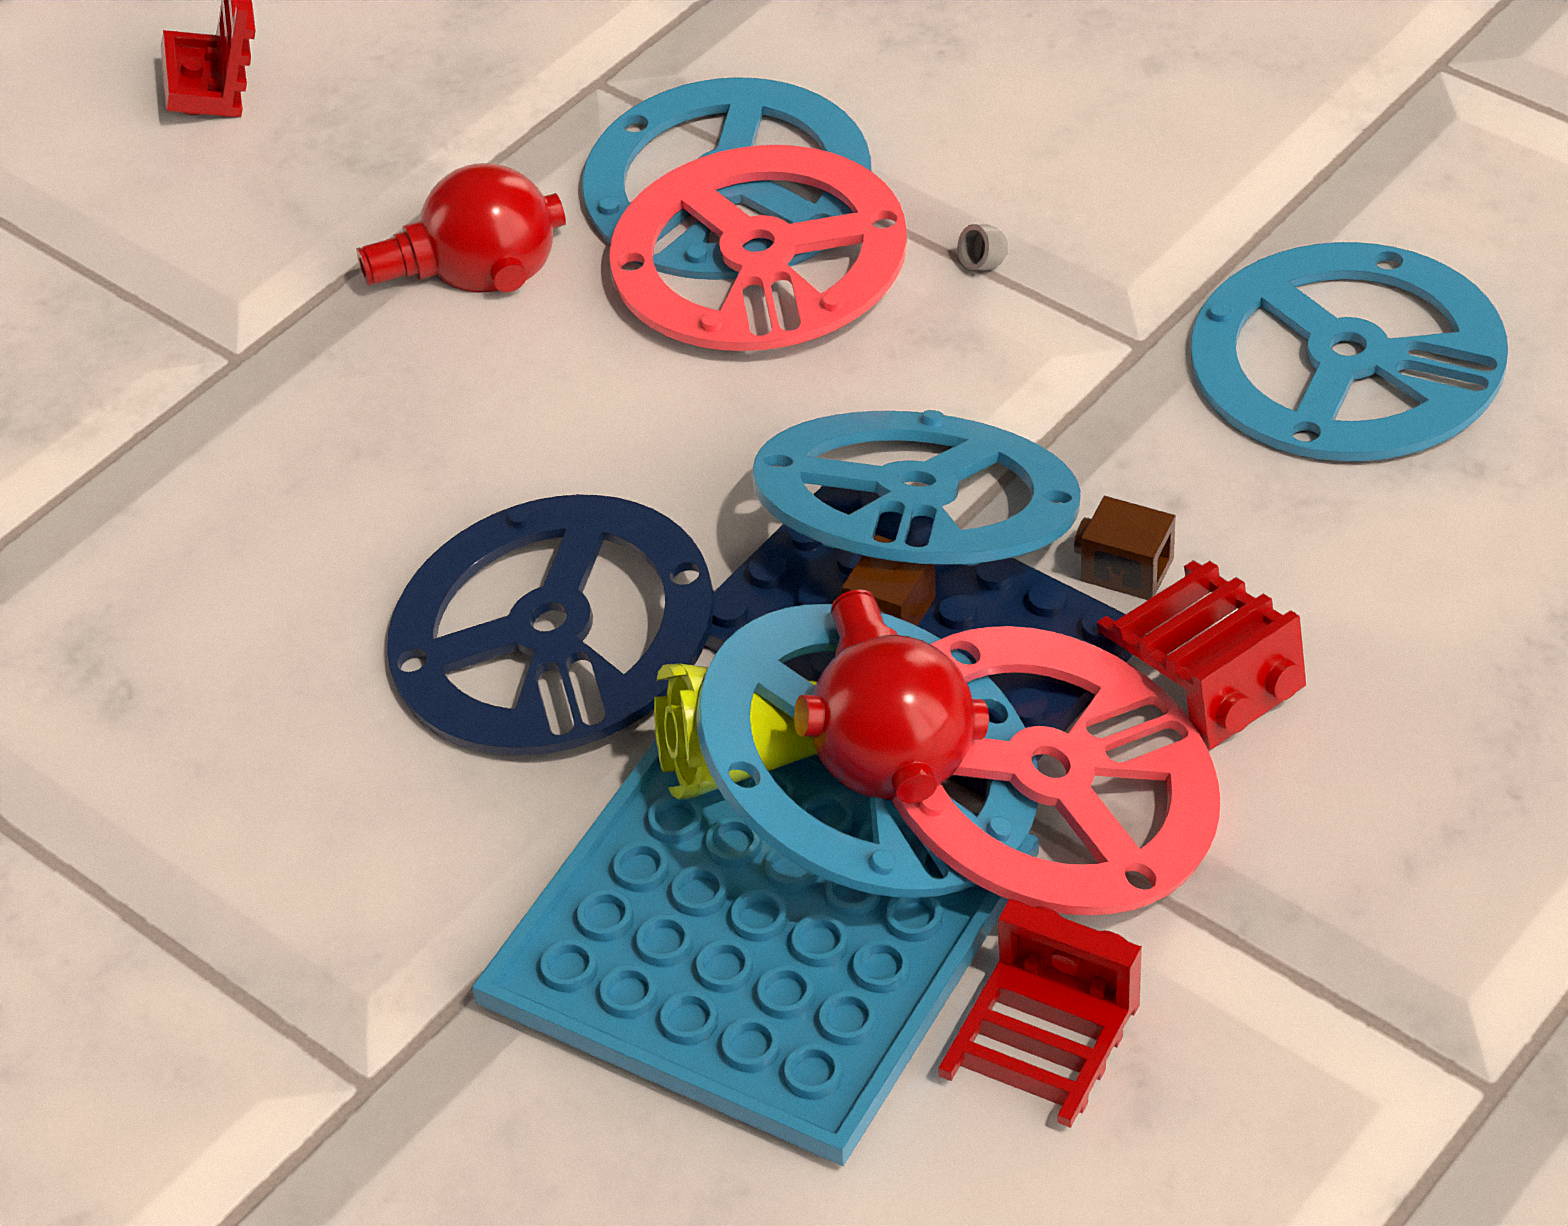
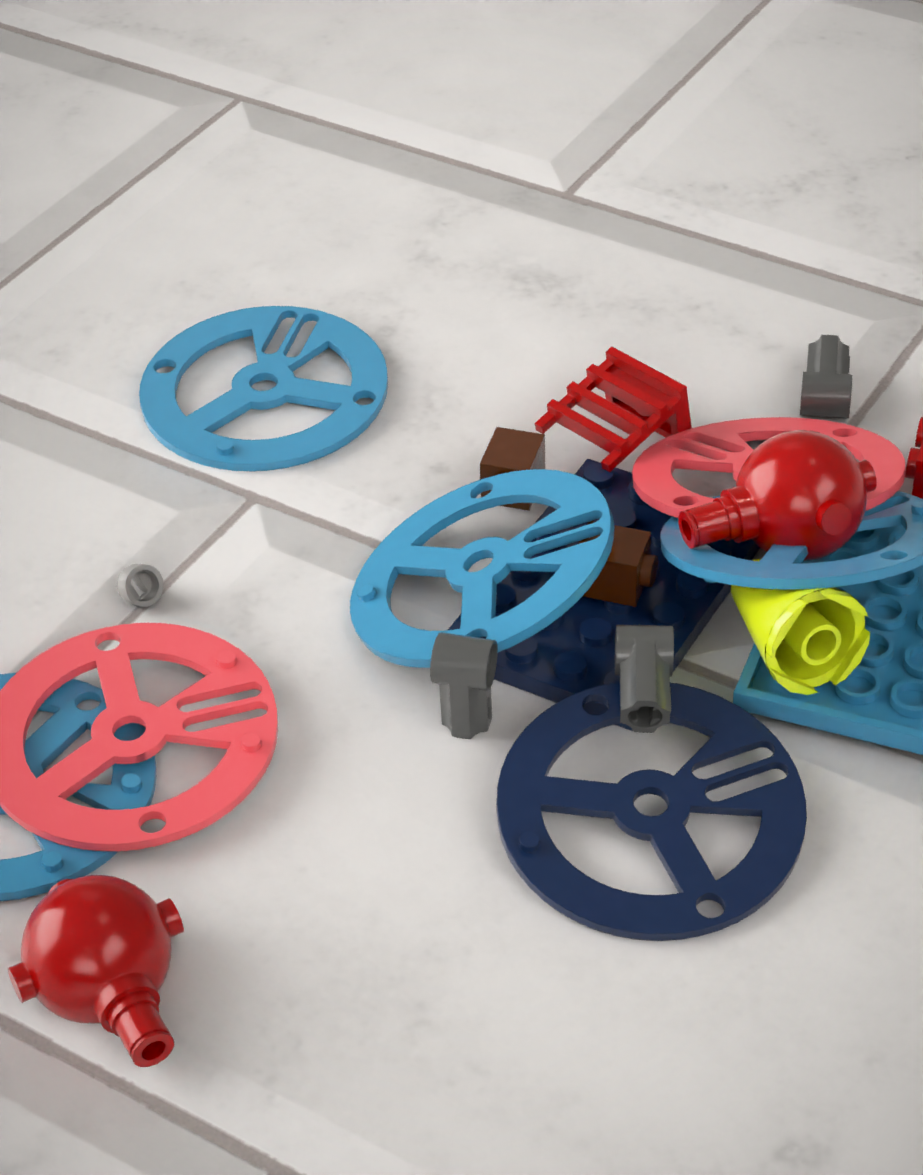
camera: 100 degrees left, 5 degrees down
(710, 597) = (645, 666): none -> dark grey piece
(727, 458) = (465, 676): none -> dark grey piece
(1264, 887) = (827, 382): none -> dark grey piece

